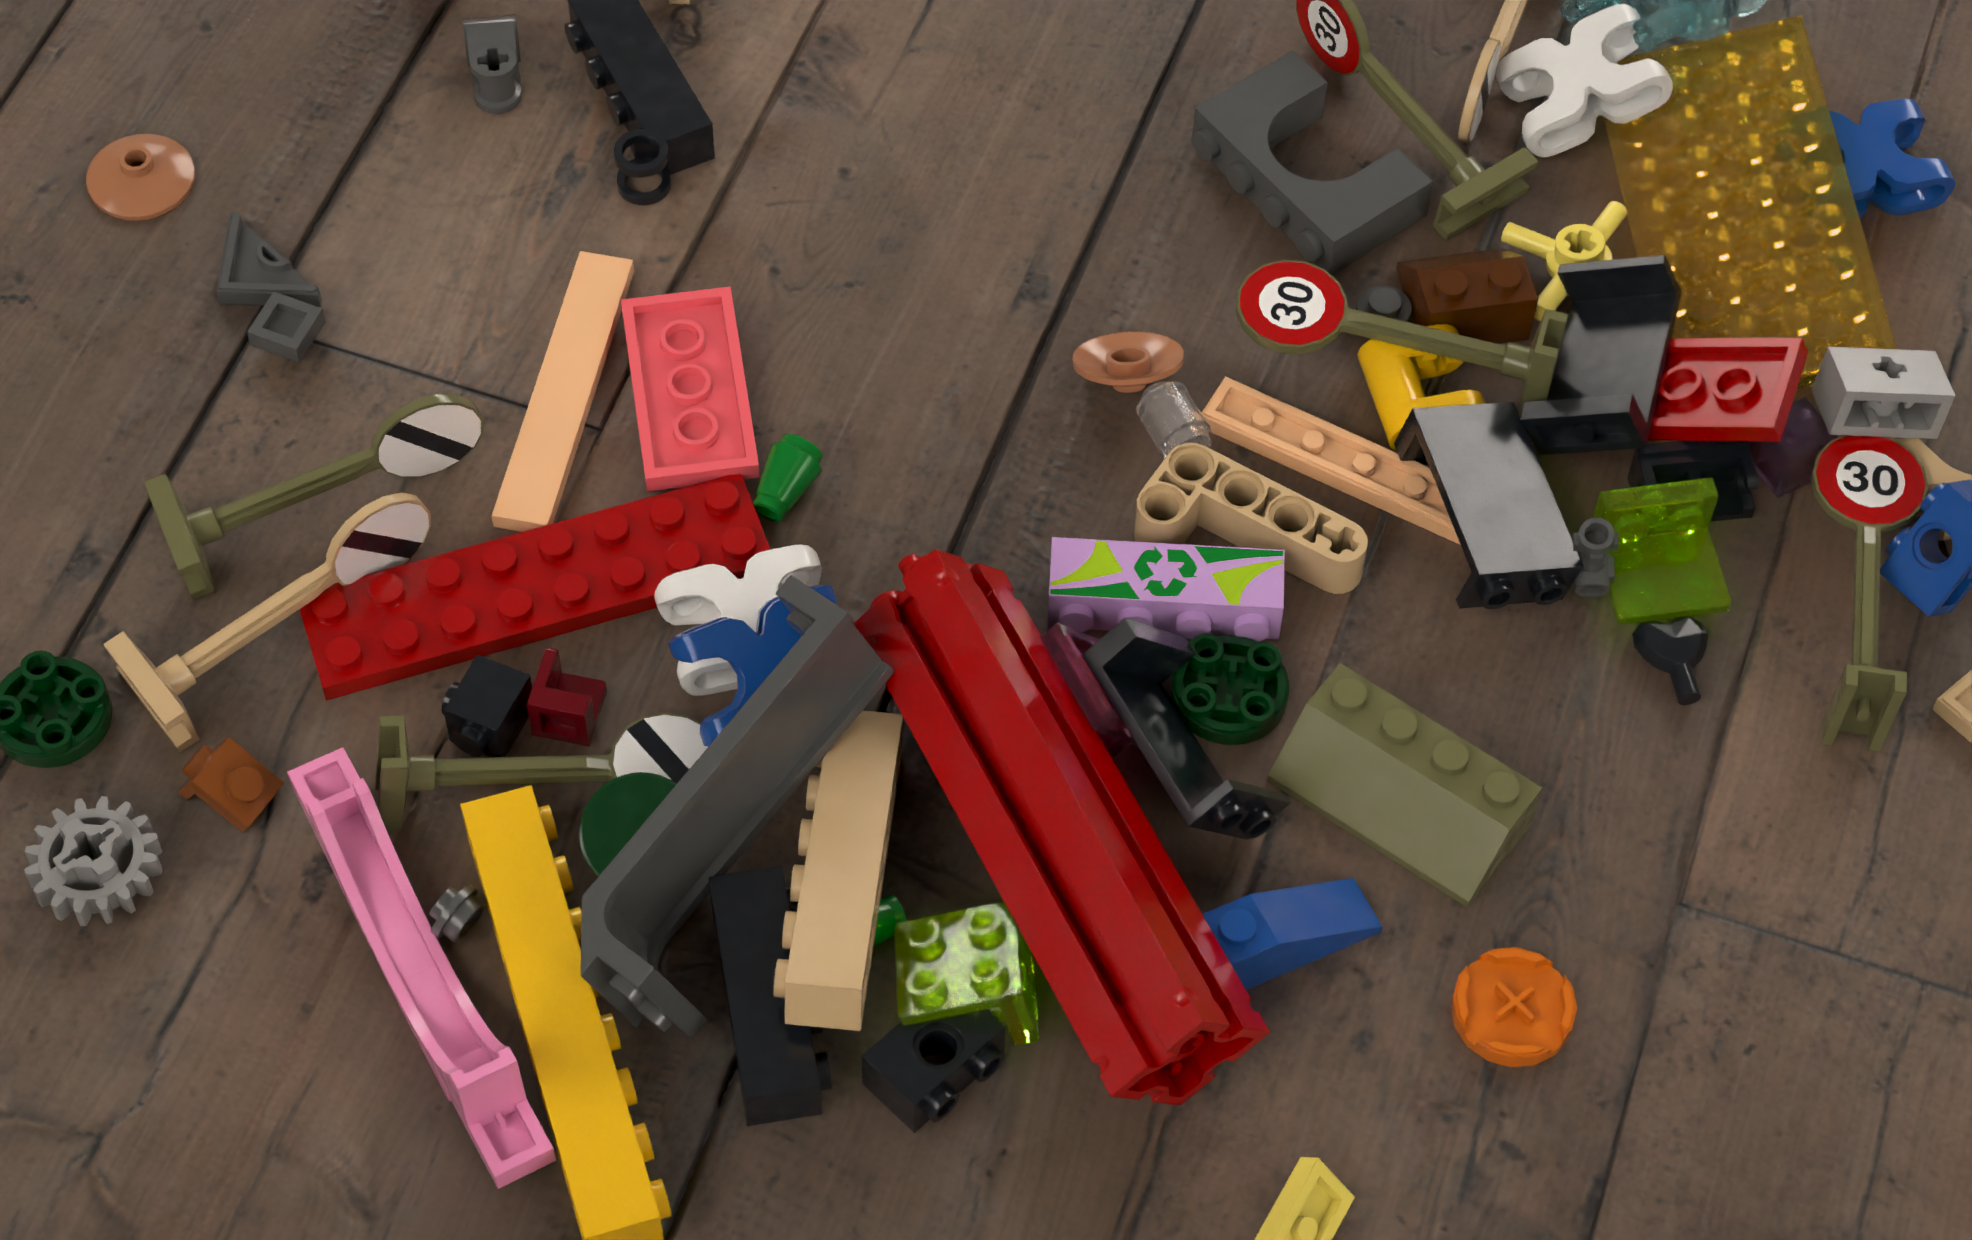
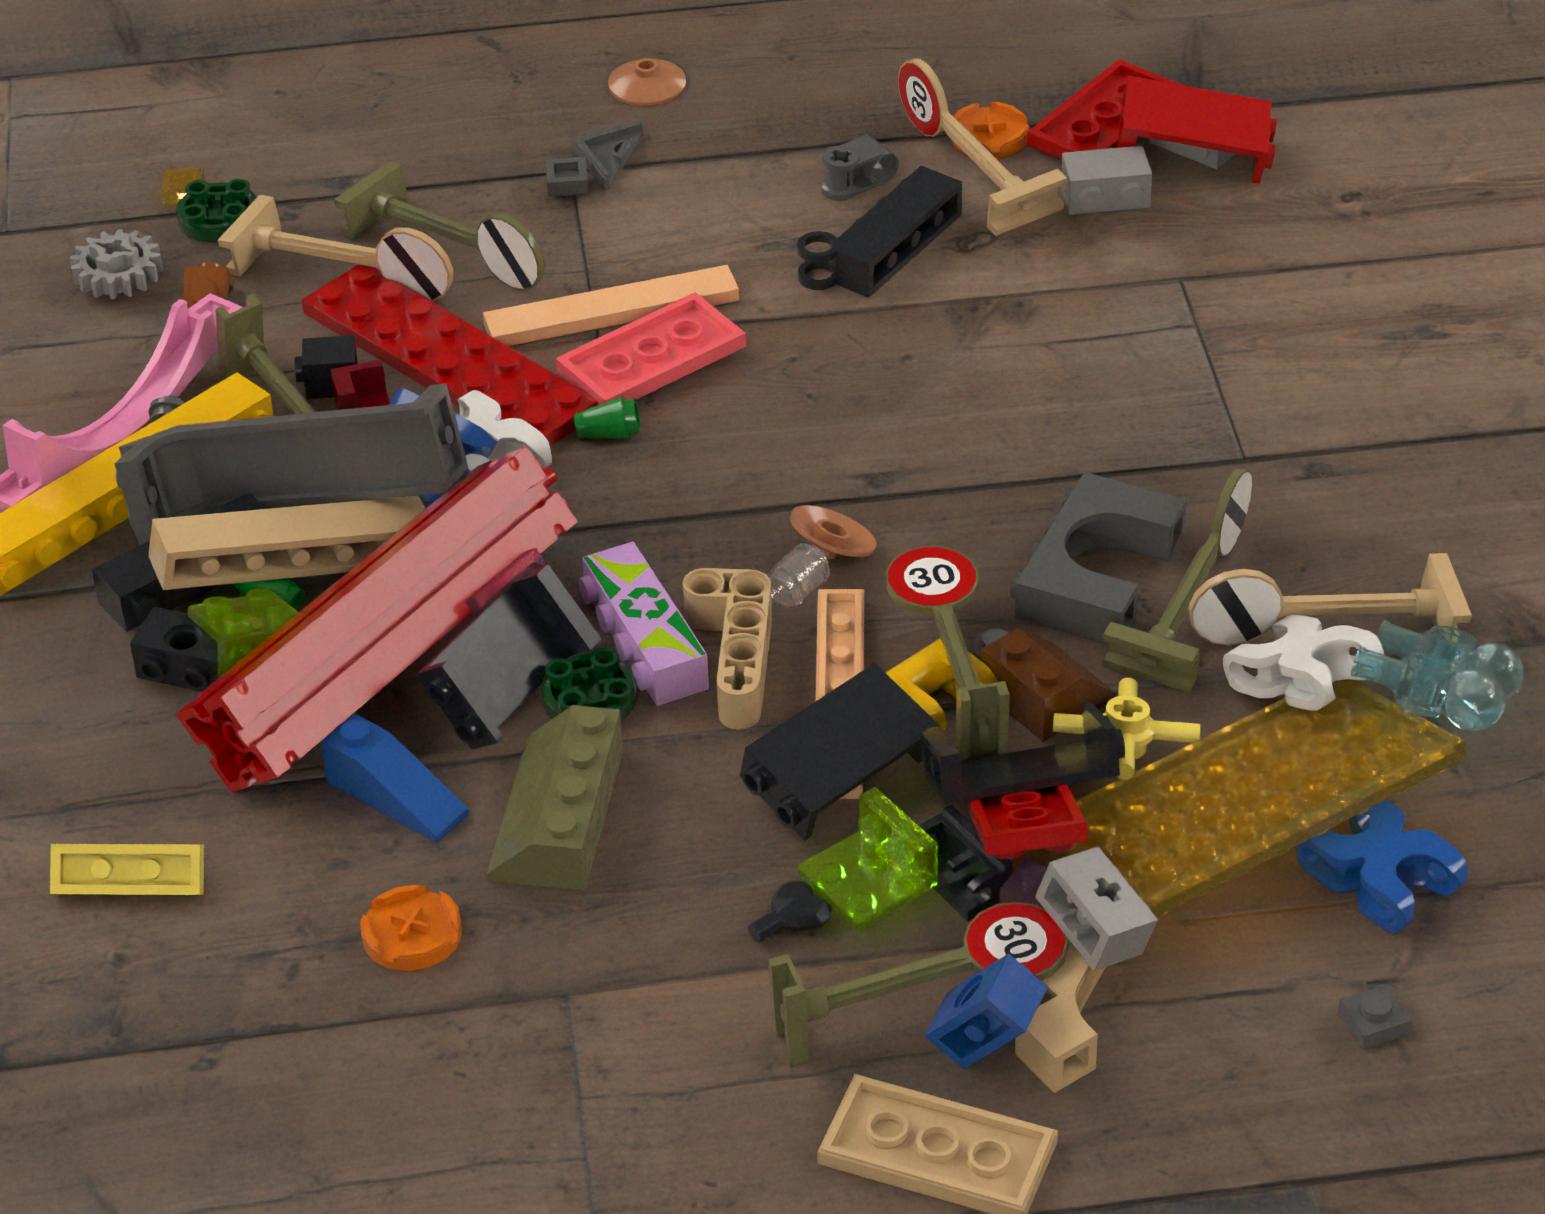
camera: 65 degrees right, 15 degrees down
(1593, 546) = (827, 827): dark grey bar -> none

